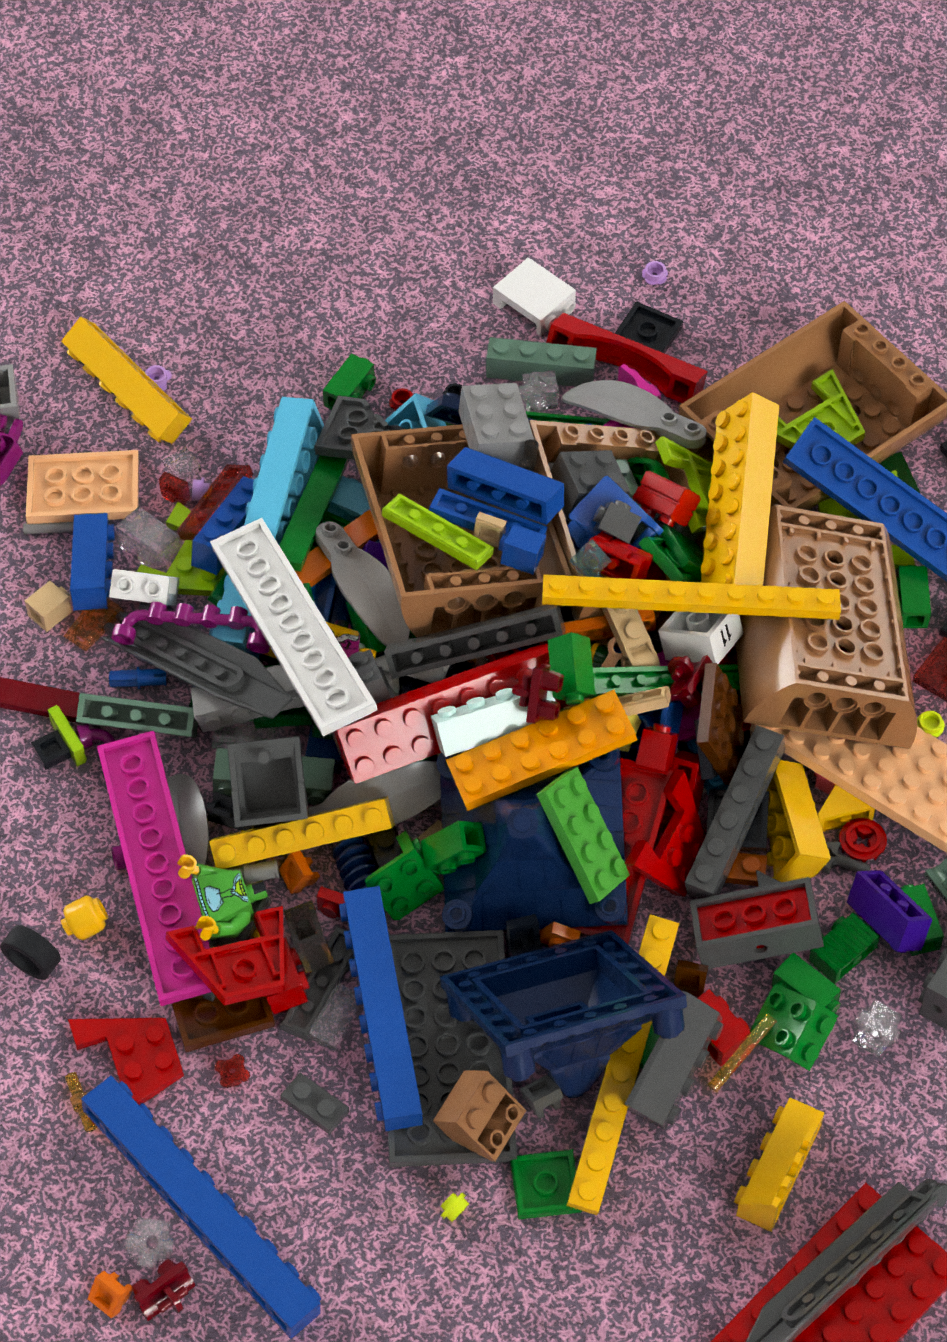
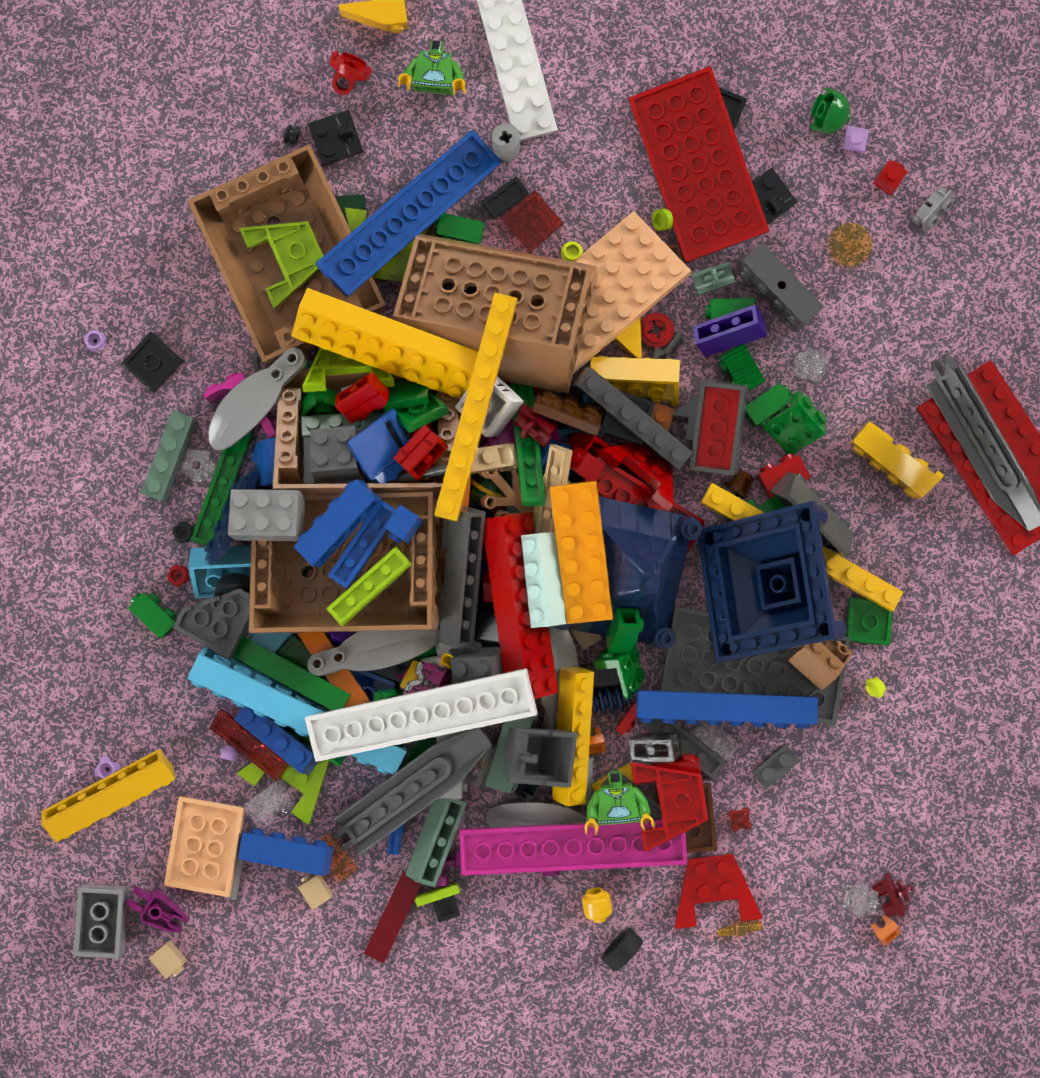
camera: 80 degrees left, 30 degrees up
(144, 587) = (326, 815): white panel -> none
(174, 488) = (225, 775): clear red plate -> none
(182, 464) = (199, 763): clear tile -> none
(184, 616) = (370, 791): magenta bar -> none
(202, 1207) = (840, 861): blue brick -> none
(489, 528) = (379, 546): tan tile -> none
(523, 935) = (692, 594): black brick -> none
(529, 456) = (311, 500): clear smoke arm -> none
(534, 693) = (545, 547): dark red hips -> none
(535, 294) = (98, 444): white panel -> none
(557, 933) = (691, 568): orange plate -> none
(572, 657) = (526, 514): green brick -> none
(583, 834) = (650, 537): bright green plate -> none
(590, 560) = (425, 474): clear light blue plate -> none
(616, 520) = (388, 444): dark grey brick -> none
(670, 375) = (209, 354): red arch -> none
(741, 1053) = (809, 464): clear yellow bar -> none

